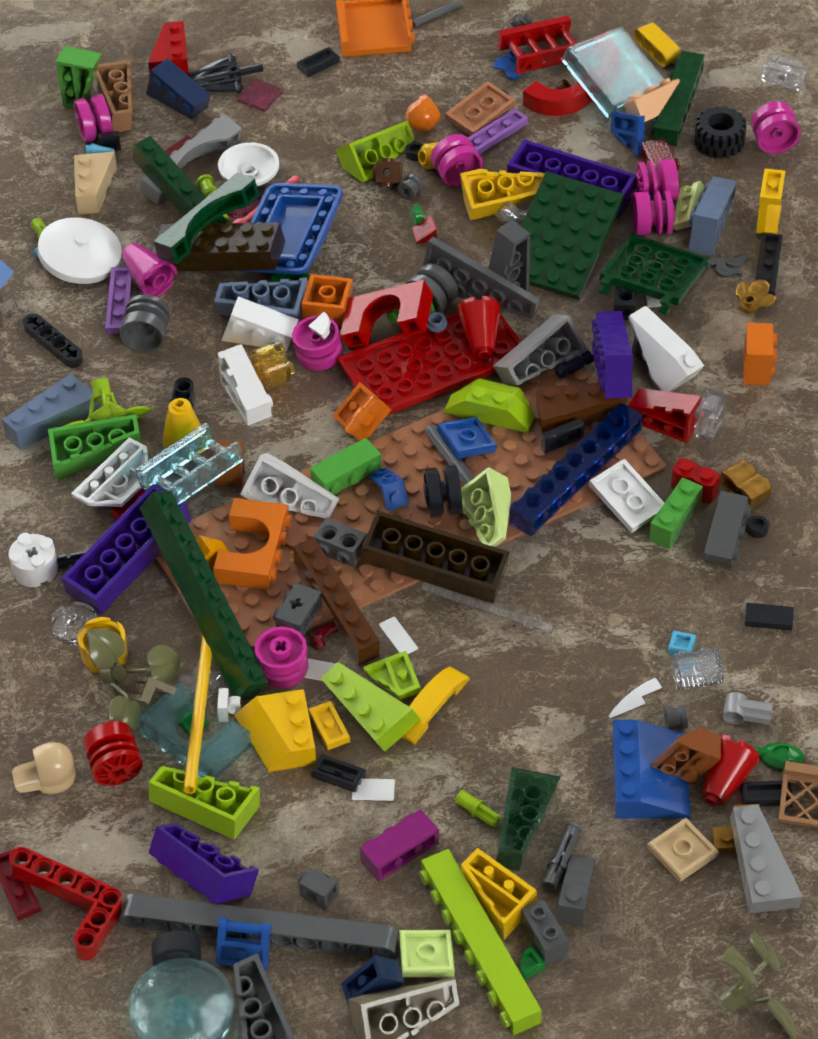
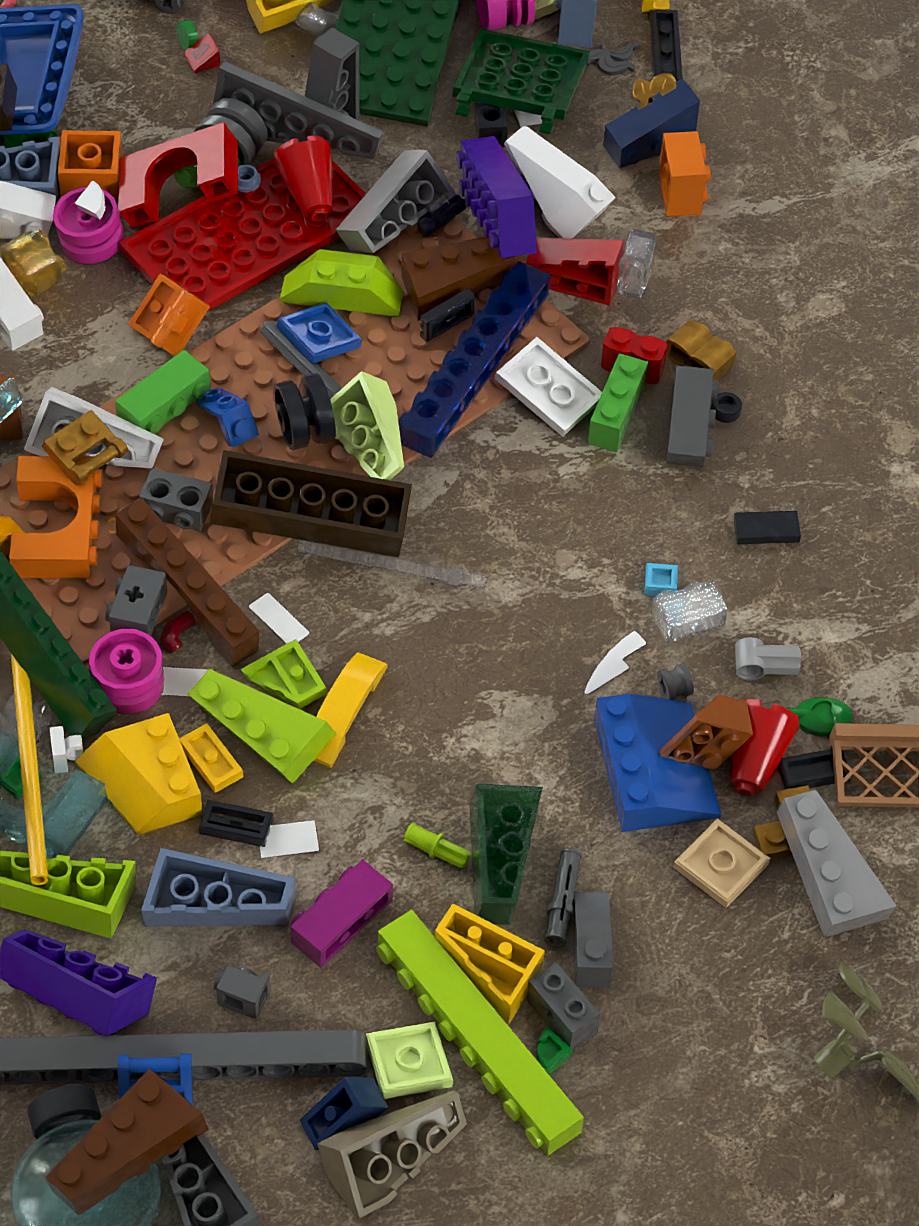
camera: 15 degrees left, 5 degrees up
(211, 975) = (125, 1142): none -> reddish brown wedge
(277, 491) = (78, 440): none -> pearl gold plate
(312, 818) = (215, 893): none -> sand blue wedge
(730, 321) = (640, 132): none -> dark blue wedge

